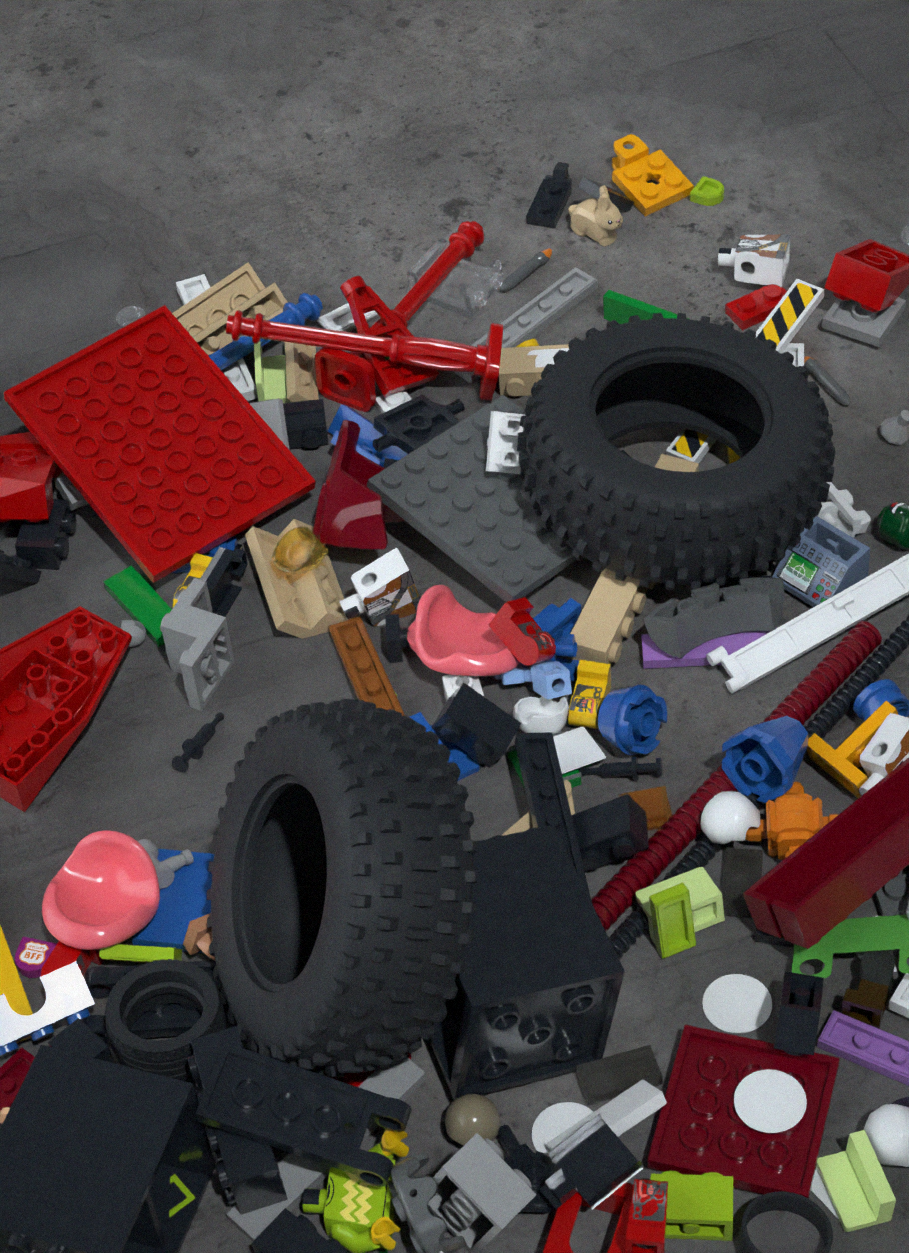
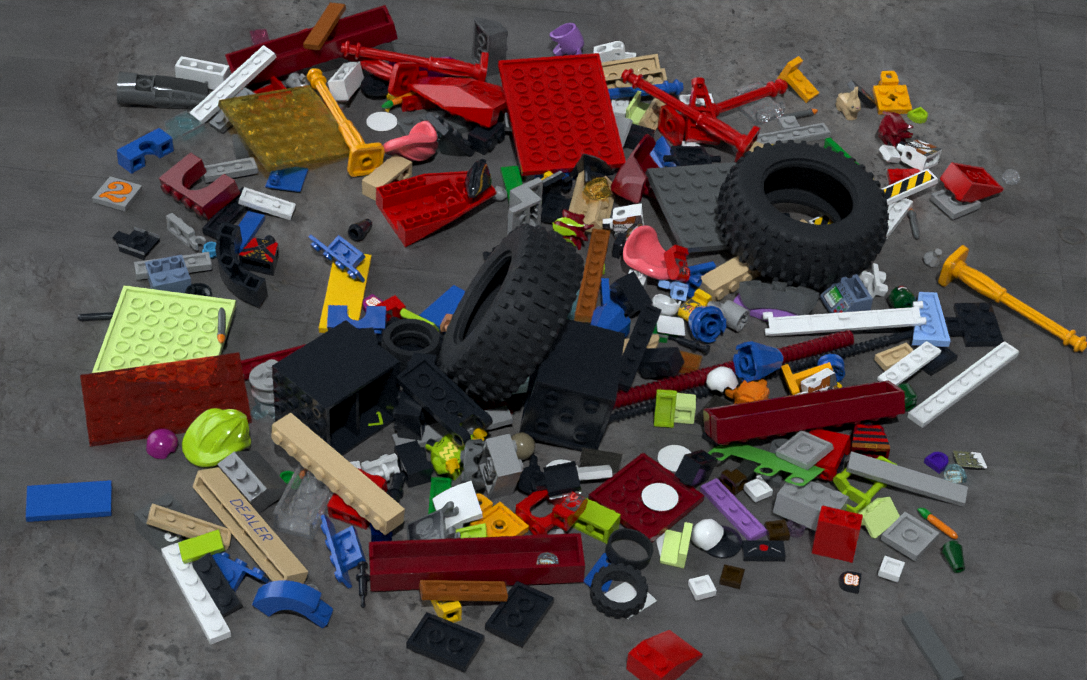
camera: 20 degrees right, 5 degrees down
(83, 299) = (569, 40): none -> medium lavender piece
(90, 628) = (478, 178): none -> black hat
(102, 892) = (416, 288): coral piece -> none
(163, 289) = (611, 51): none -> white leg
(167, 867) = (446, 284): light grey piece -> none
(247, 617) = (553, 207): none -> black plate
(269, 515) = (593, 168): none -> black shield
(298, 645) = (572, 227): none -> dark red hair
(489, 799) = (611, 318): none -> blue cone
(493, 213) = (798, 81): none -> light orange bracket
(502, 443) = (720, 177): white hips -> none
(520, 292) = (788, 122): none -> light grey plate
(551, 198) = (835, 86): black hinge -> none
(663, 677) = (735, 315): none -> light grey piece
(695, 233) = (894, 129): none -> dark red hair
(713, 277) = (890, 154): none -> white plate

